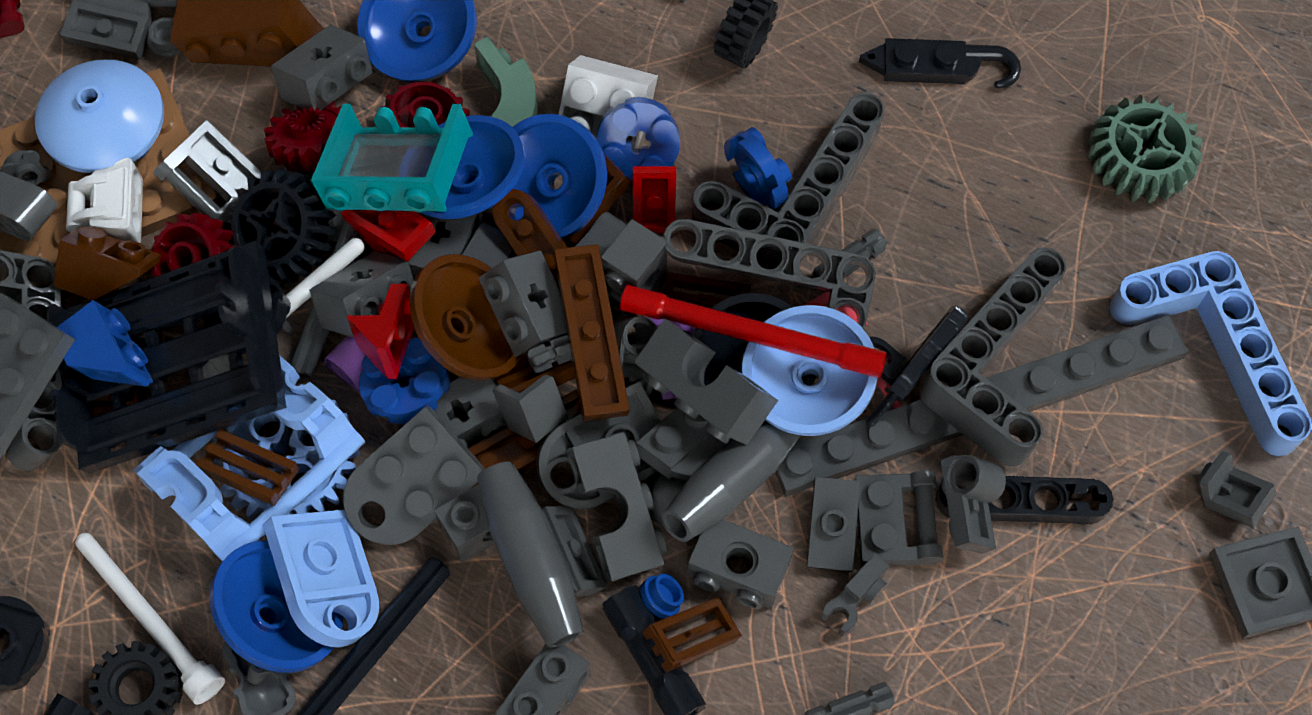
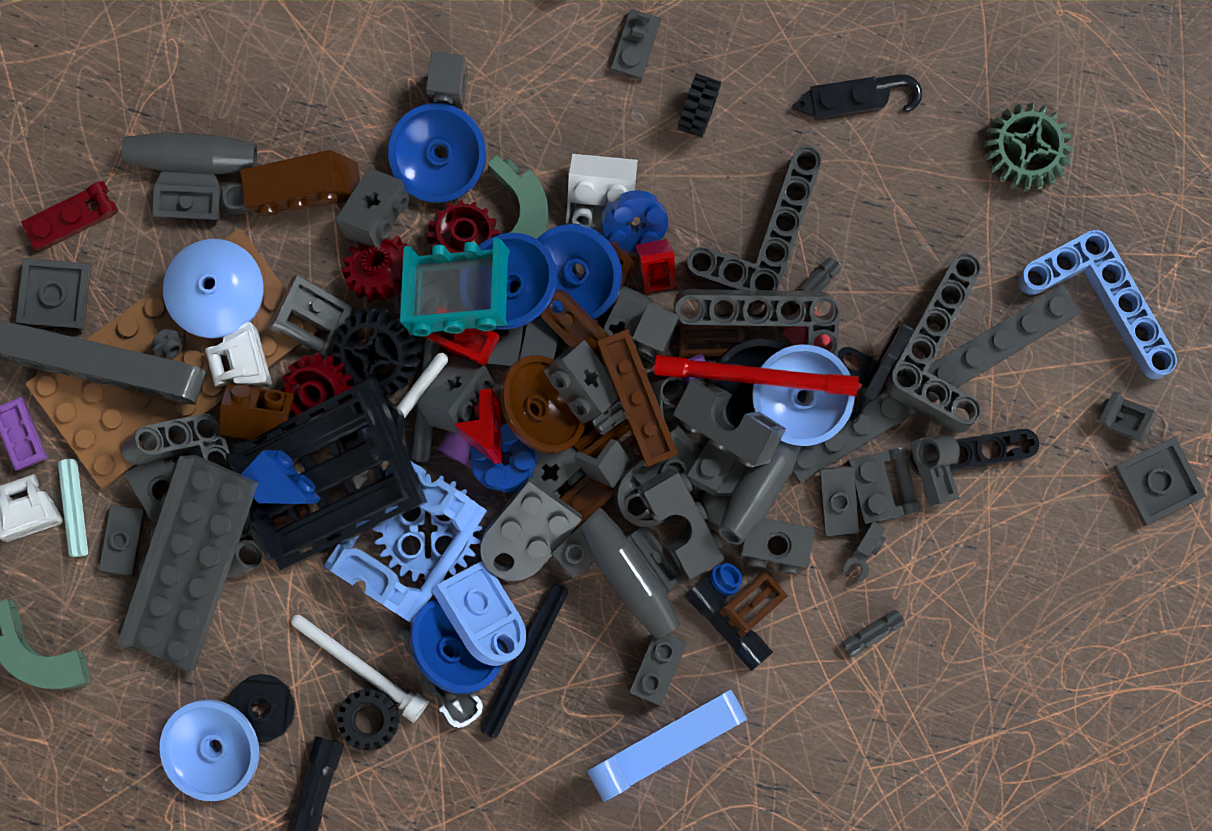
camera: 10 degrees left, 15 degrees up
(218, 452) = (380, 542): reddish brown tile -> none
(758, 173) = (732, 231): blue plate -> none

